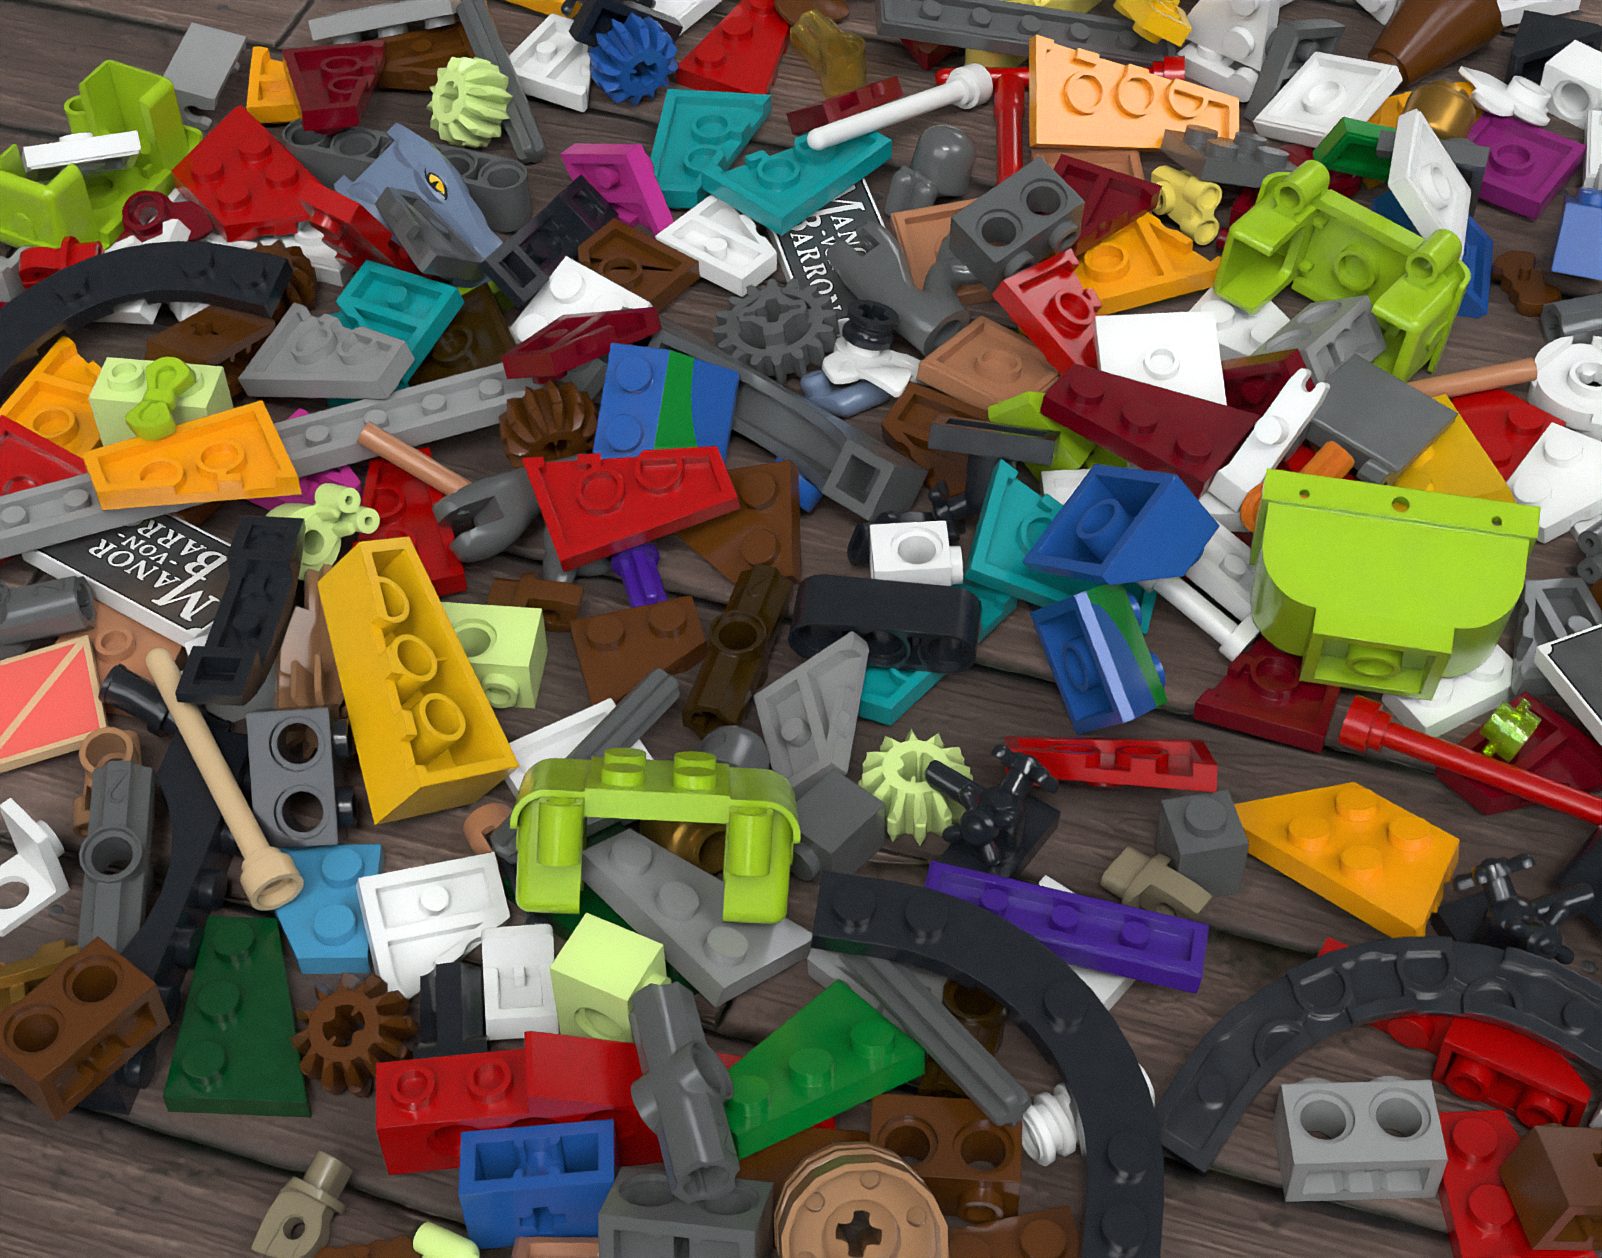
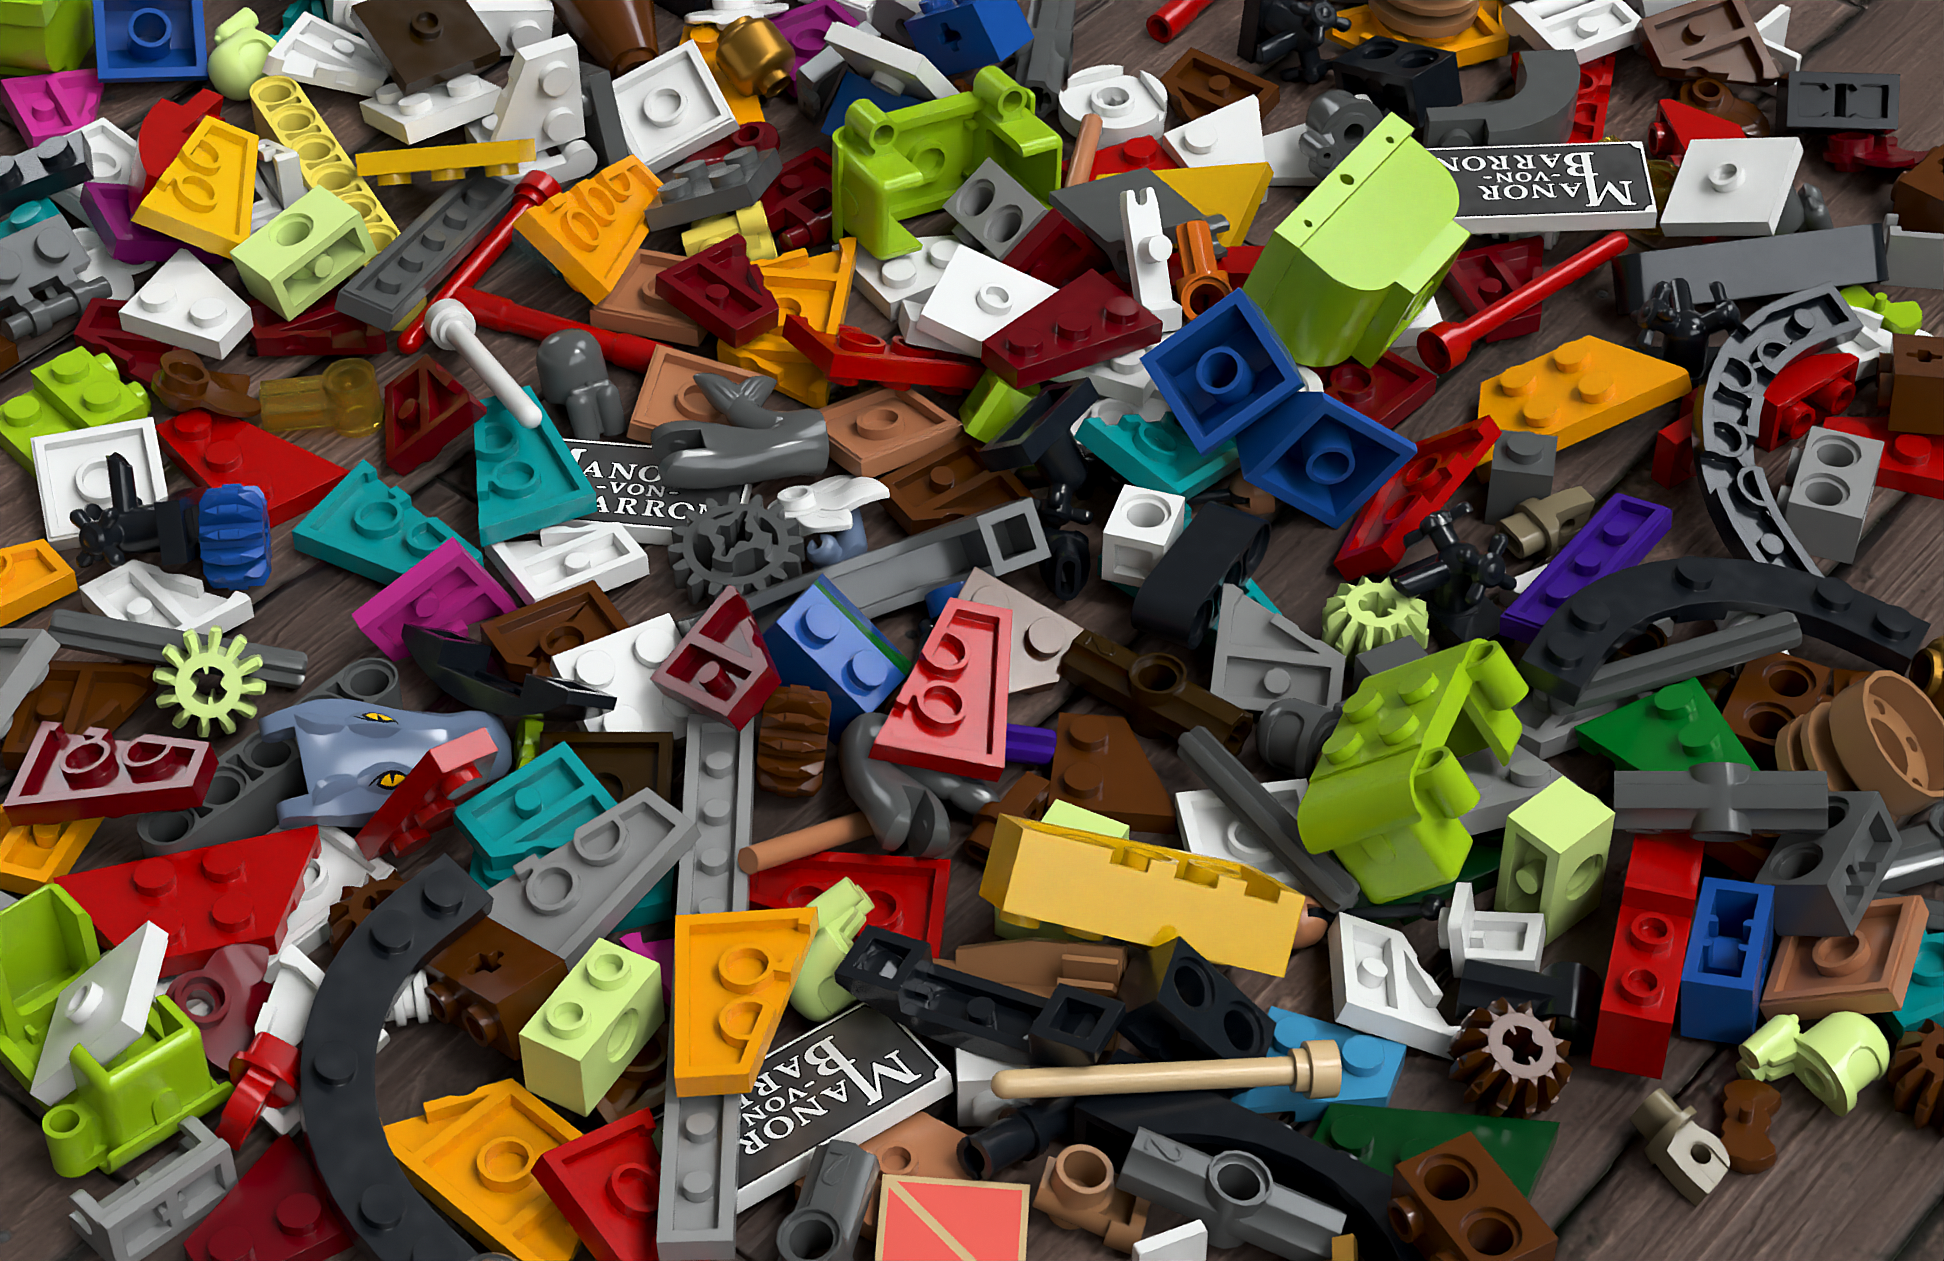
camera: 70 degrees left, 5 degrees down
(165, 382) = (623, 972): lime piece -> none
(428, 237) = (506, 735): dark grey wing -> none
(870, 325) = (792, 478): black bush -> none
(1008, 217) = (759, 325): dark grey brick -> none
(1352, 149) = (777, 101): green tile -> none
(1509, 729) = (1497, 267): clear neon green plate -> none

